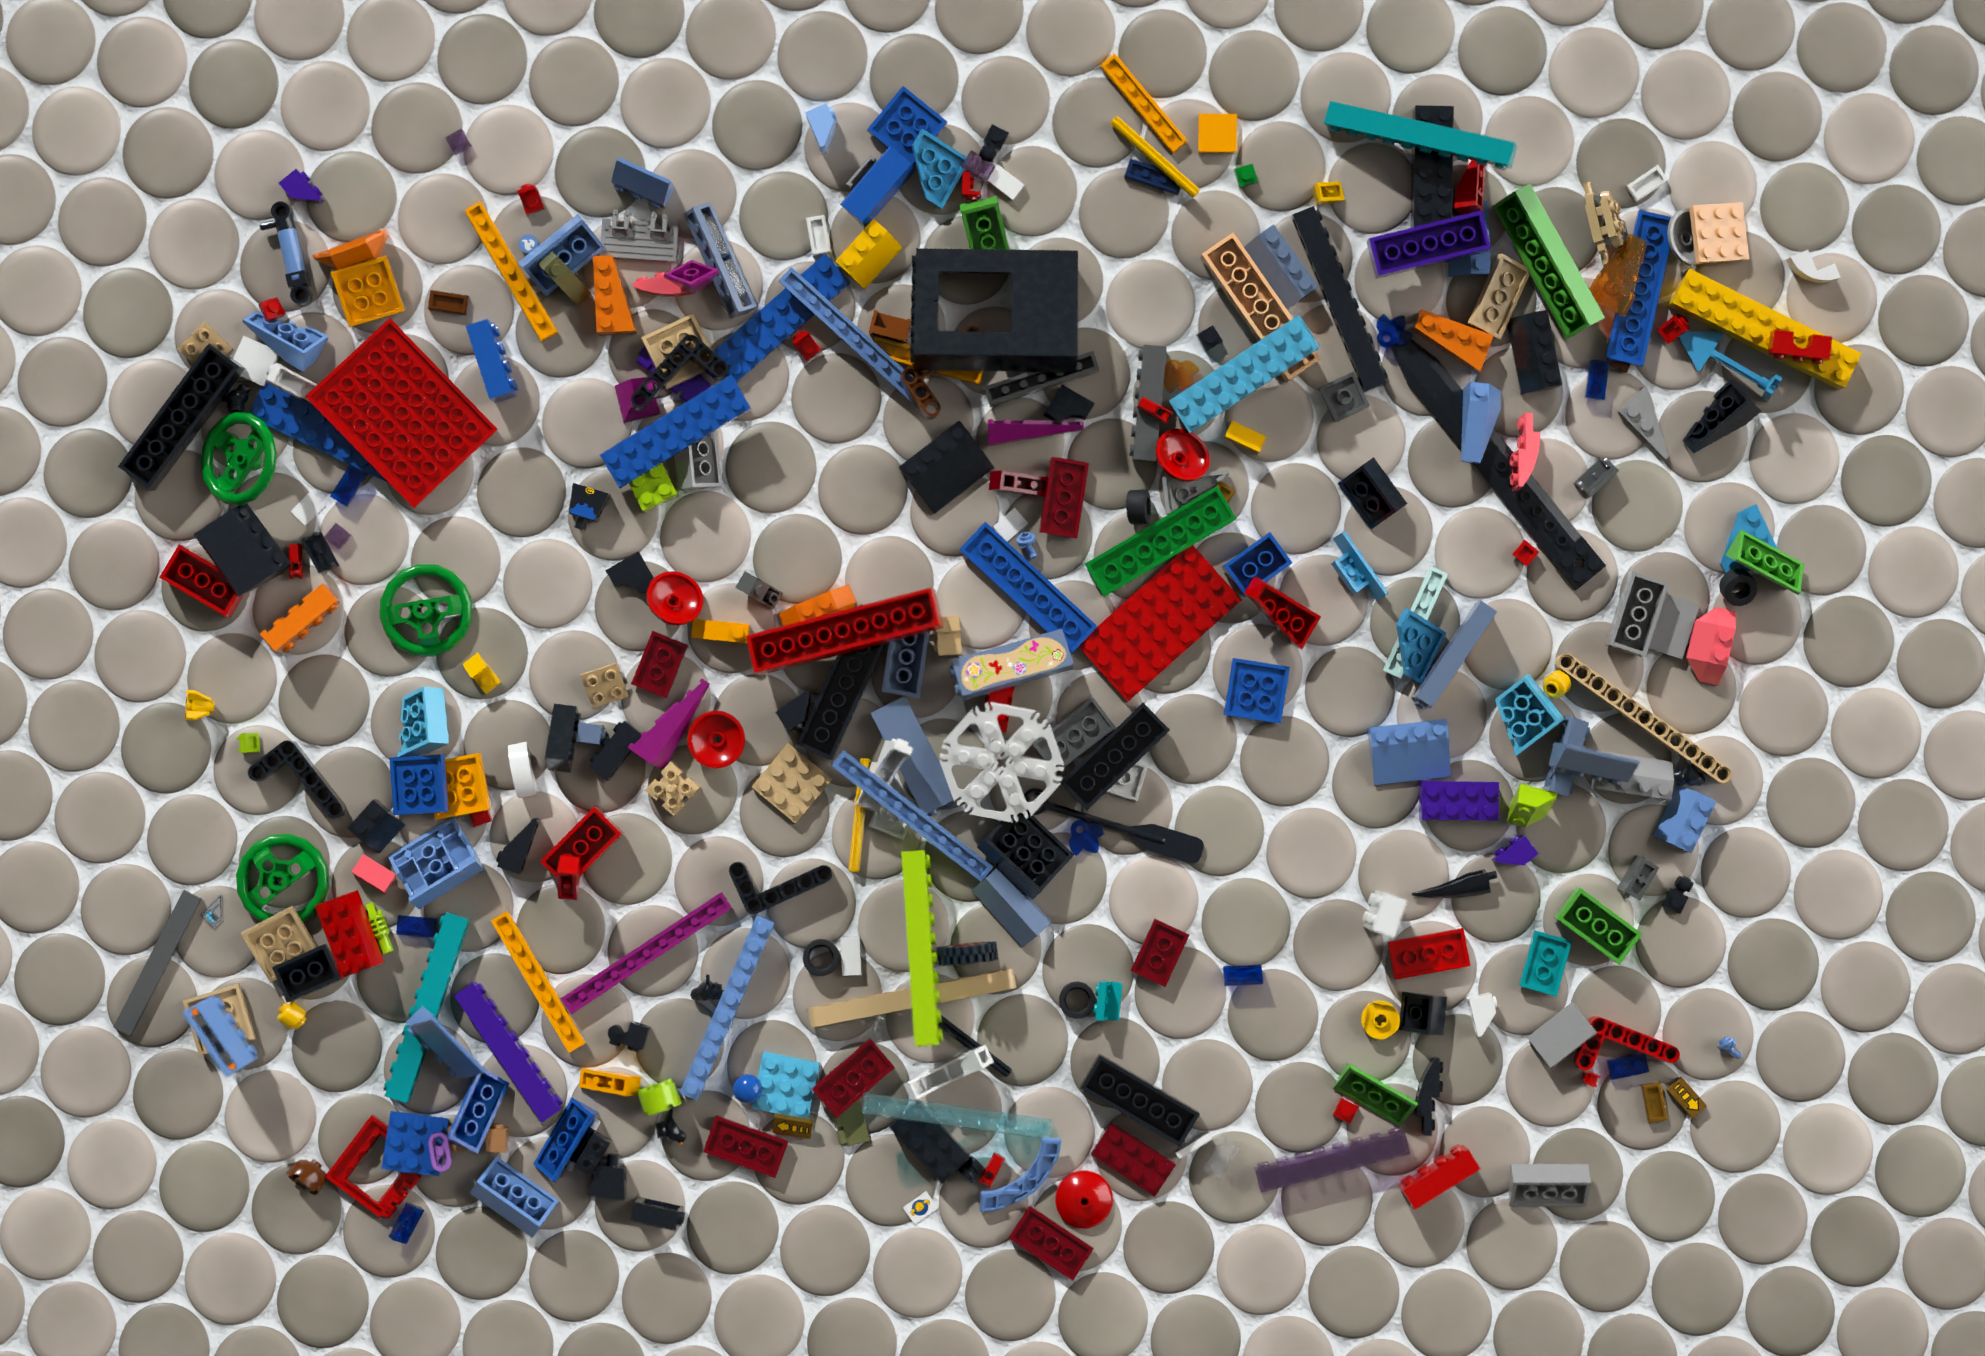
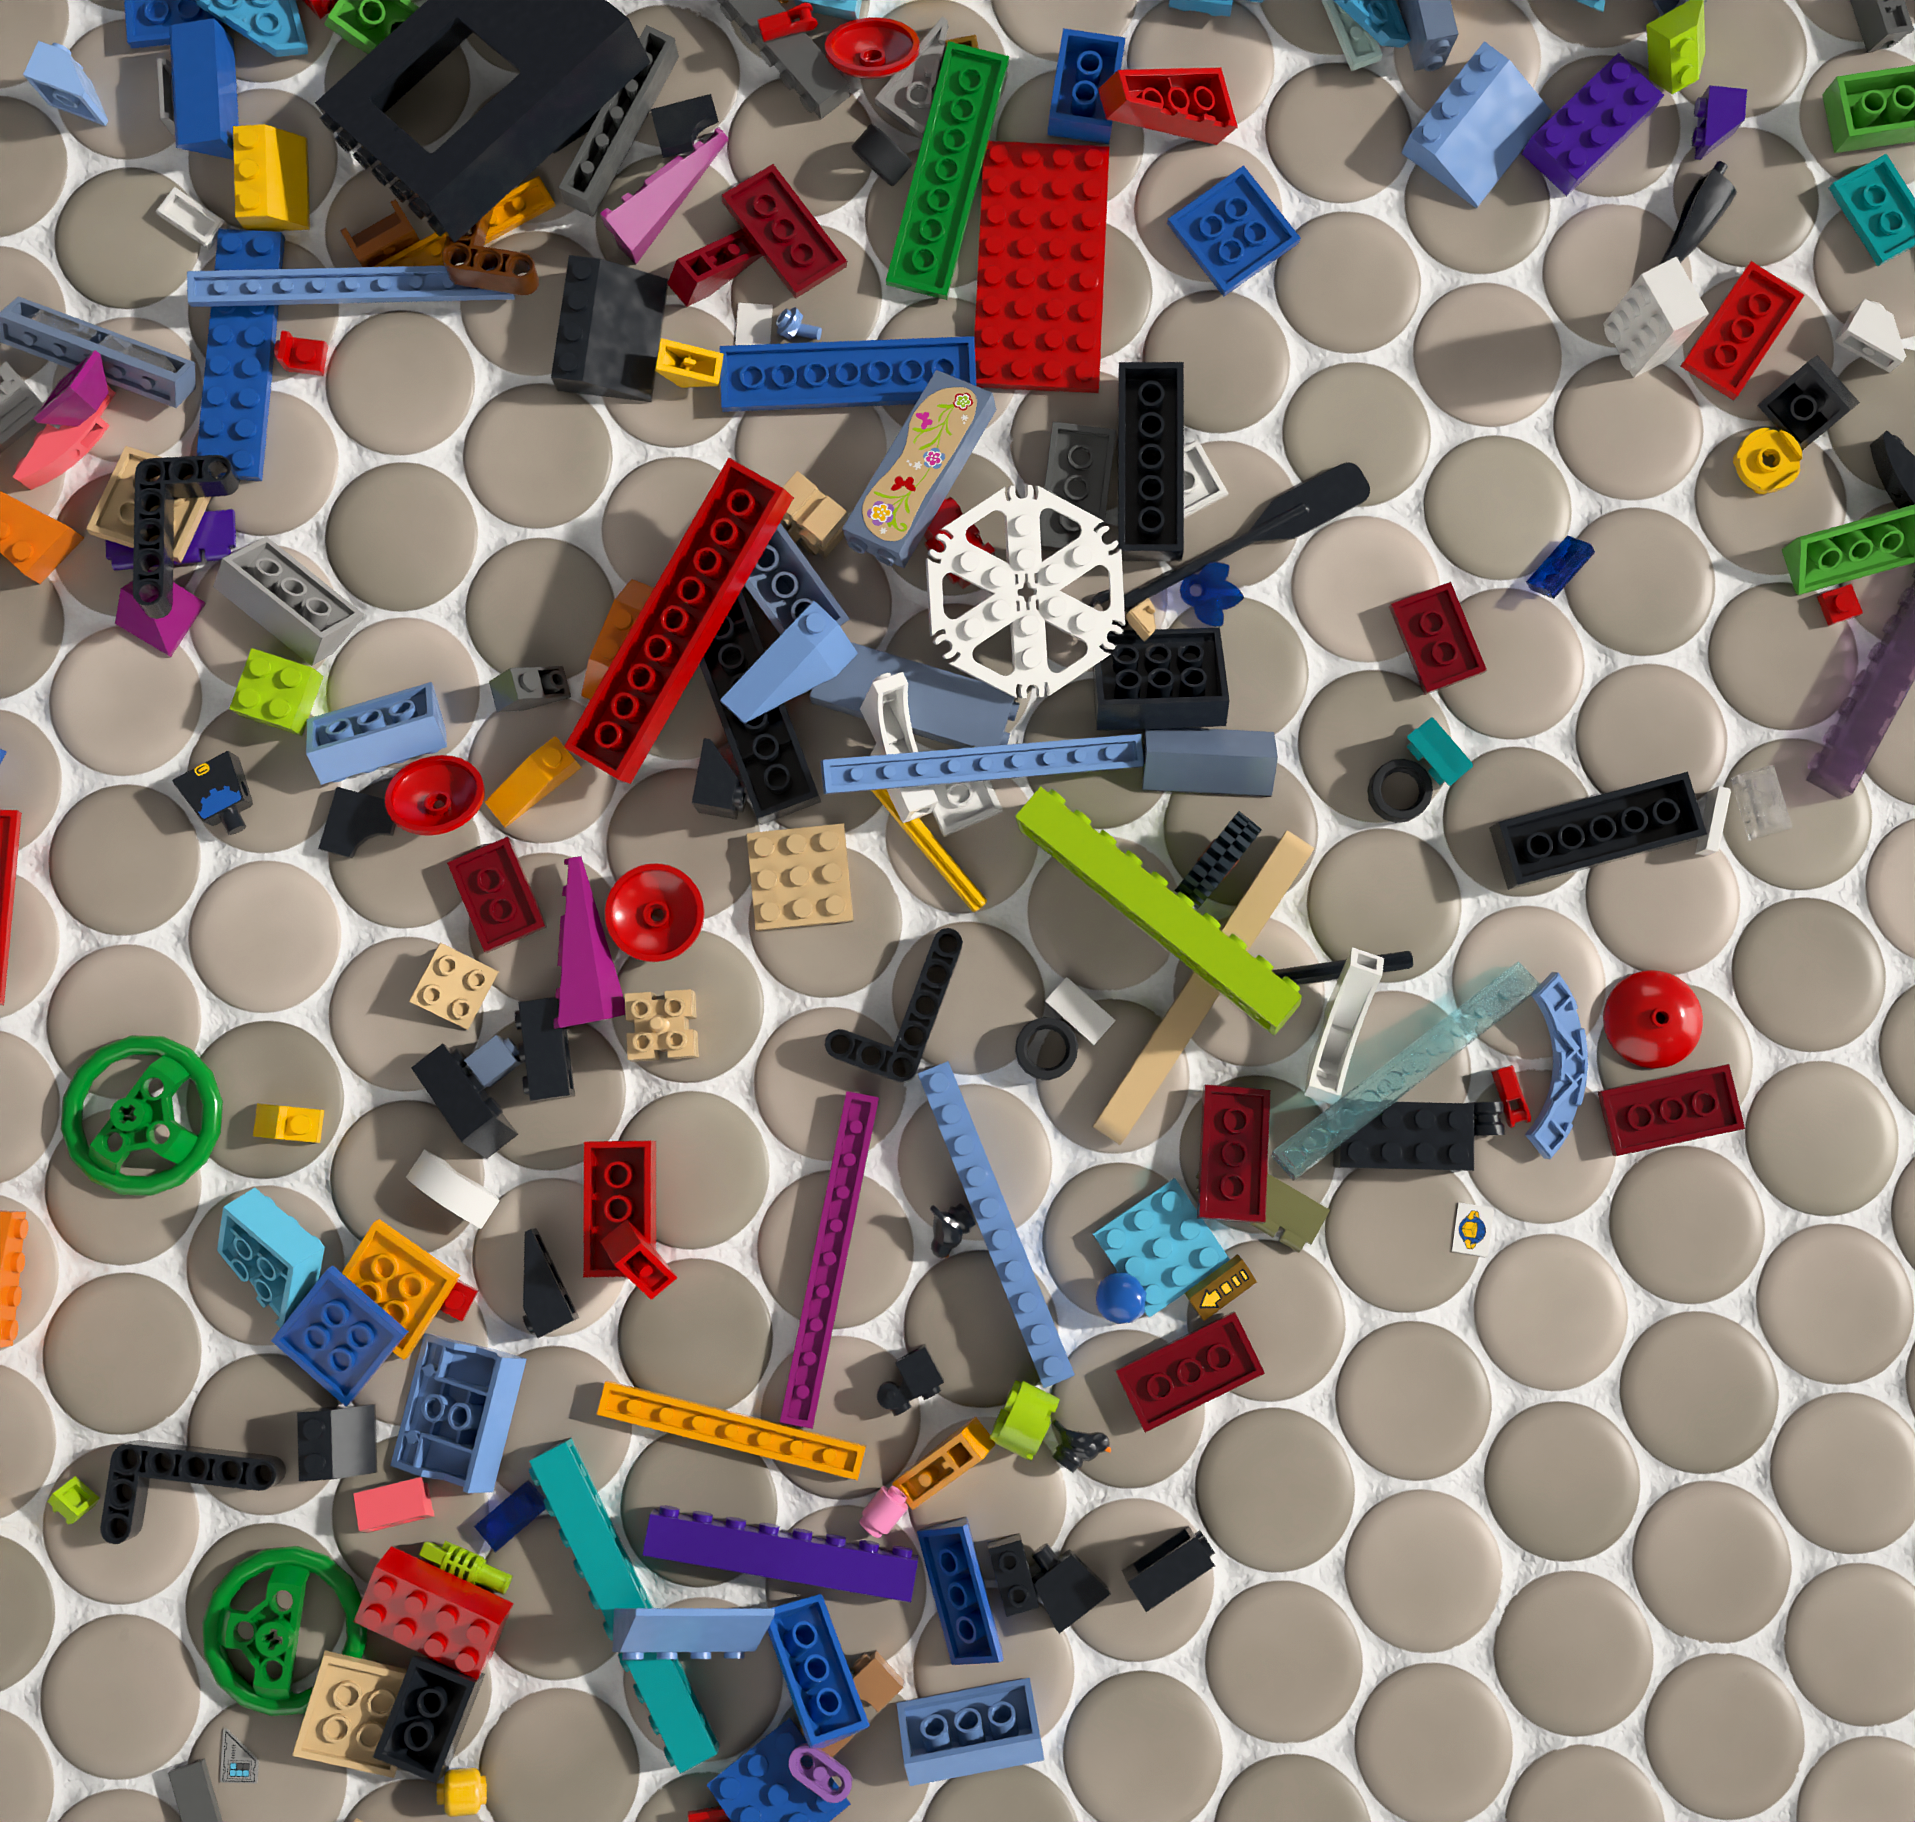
camera: 45 degrees left, 5 degrees down
(566, 1076) = (883, 1511): none -> bright pink brick
(592, 1128) = (989, 1577): black bar -> none
(675, 431) = (235, 592): blue plate -> none
(676, 544) = (375, 733): none -> medium blue slope
(878, 695) = (799, 660): none -> medium blue wedge
(963, 518) = (688, 364): none -> yellow slope
(1044, 819) = (1142, 619): none -> tan tile
(1133, 1159) = (1659, 911): dark red plate -> none

